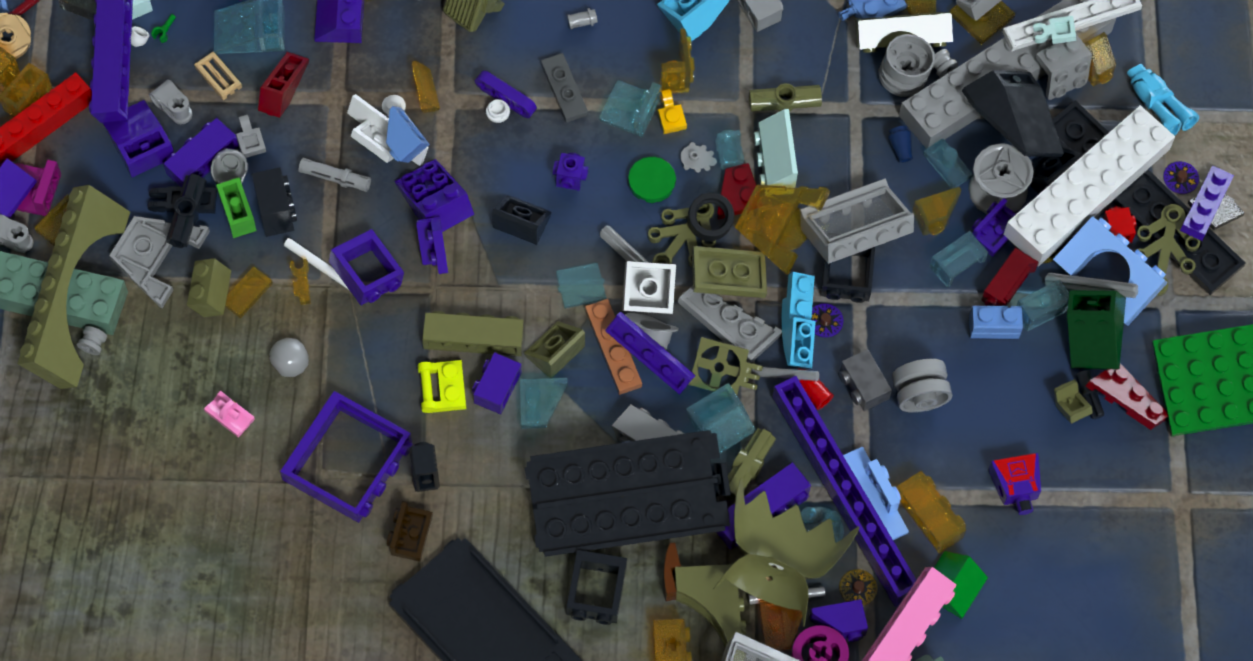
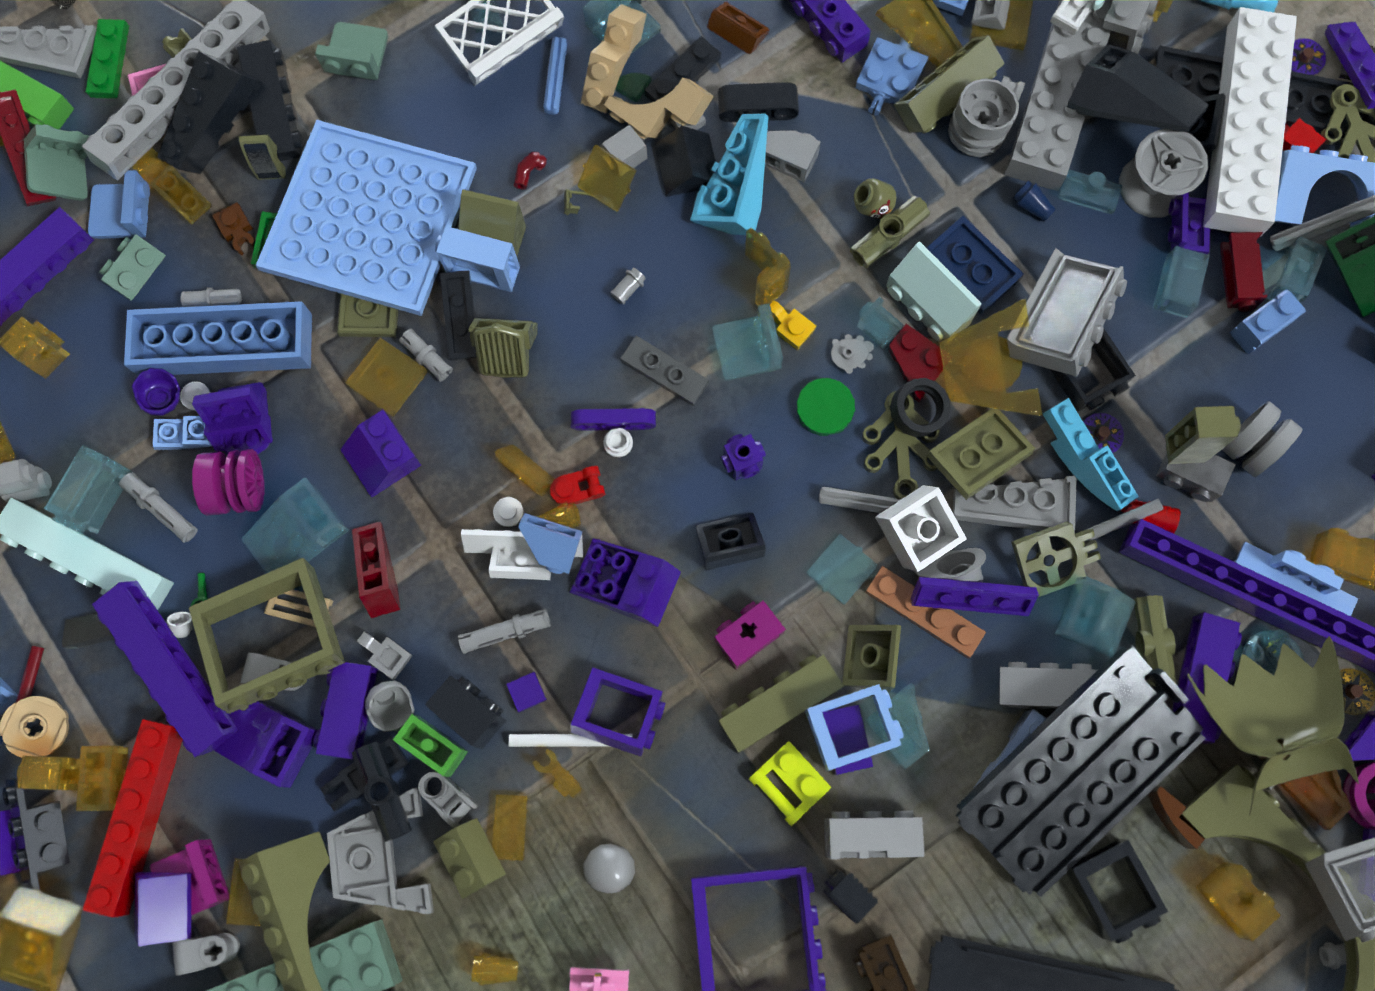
camera: 30 degrees left, 10 degrees up
(171, 362) = (493, 969): none -> clear yellow cone
(192, 45) = (249, 595): none -> olive window
(222, 248) = (447, 799): none -> light grey piece
(320, 221) = (526, 692): none -> dark purple tile
(428, 130) = (564, 514): none -> clear yellow cone
(432, 243) = (668, 638): dark purple bracket -> none
(442, 117) = (567, 487): none -> red plate
(466, 446) = (873, 835): none -> light grey wedge
(496, 288) = (740, 649): none -> magenta brick
(497, 388) = (824, 741): none -> light blue window
(791, 69) = (875, 198): none -> olive head
(824, 155) = (975, 262): none -> dark blue plate
(869, 342) = (1201, 434): none -> olive brick
(936, 210) = (1124, 245): clear yellow slope -> none

